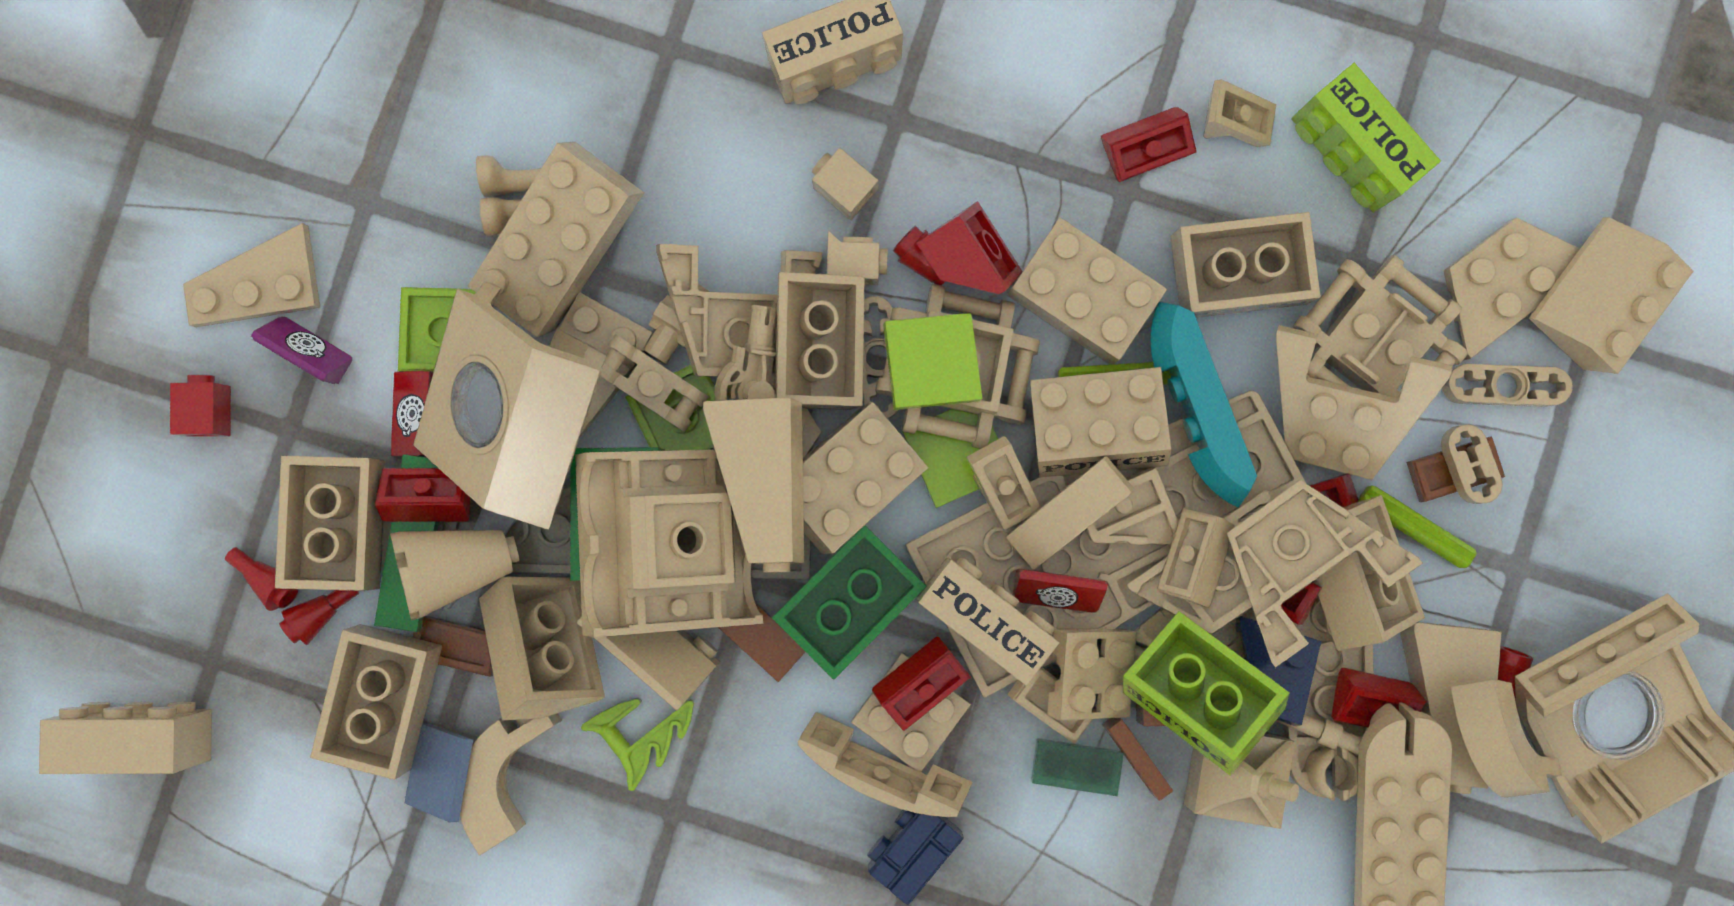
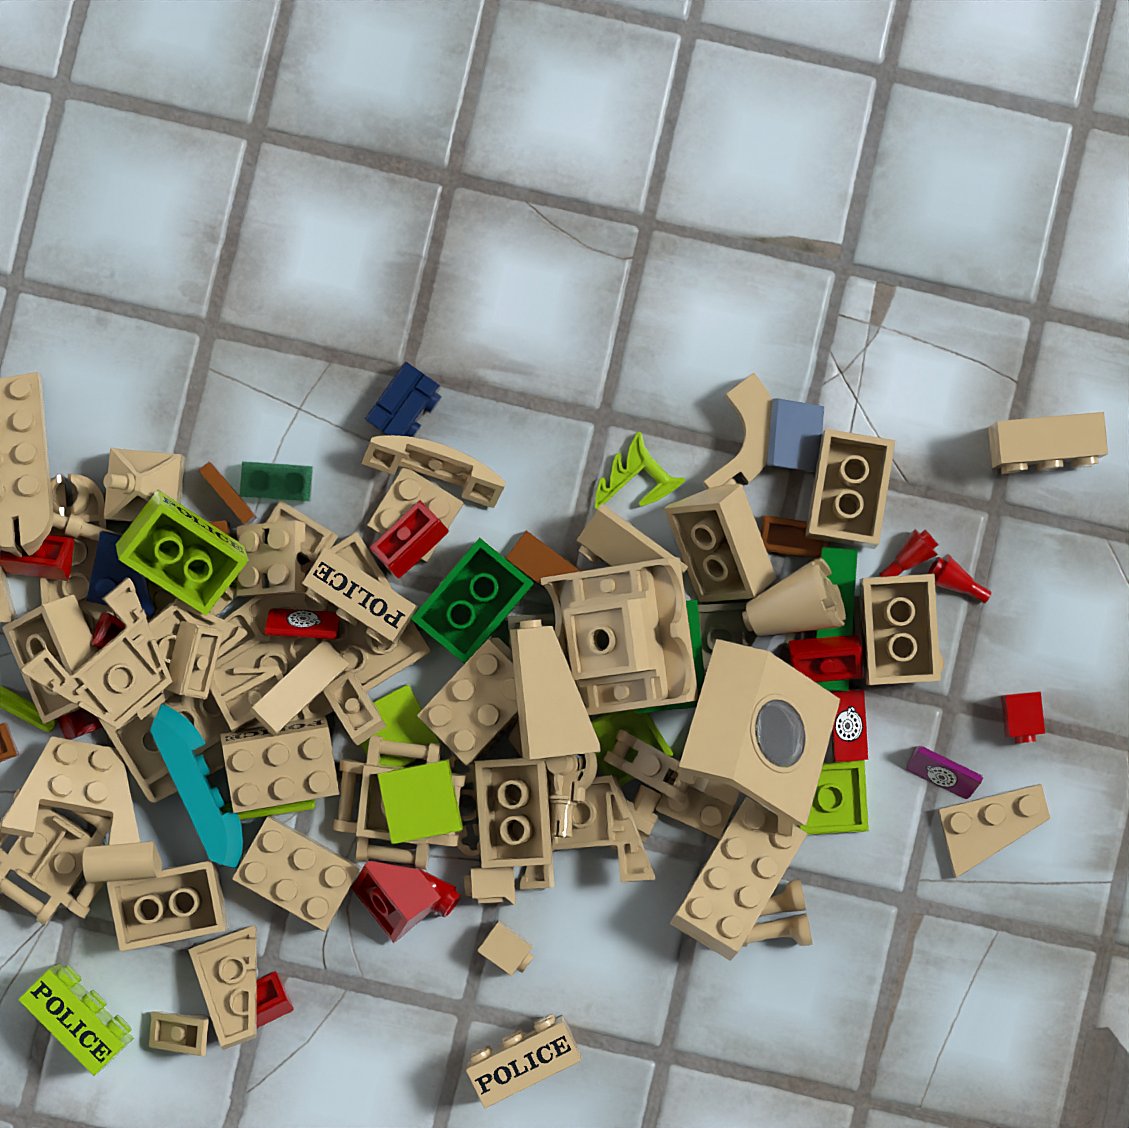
camera: 170 degrees right, 0 degrees up
(1177, 166) = (229, 984): none -> tan wing
(1302, 317) = (121, 862): none -> tan brick

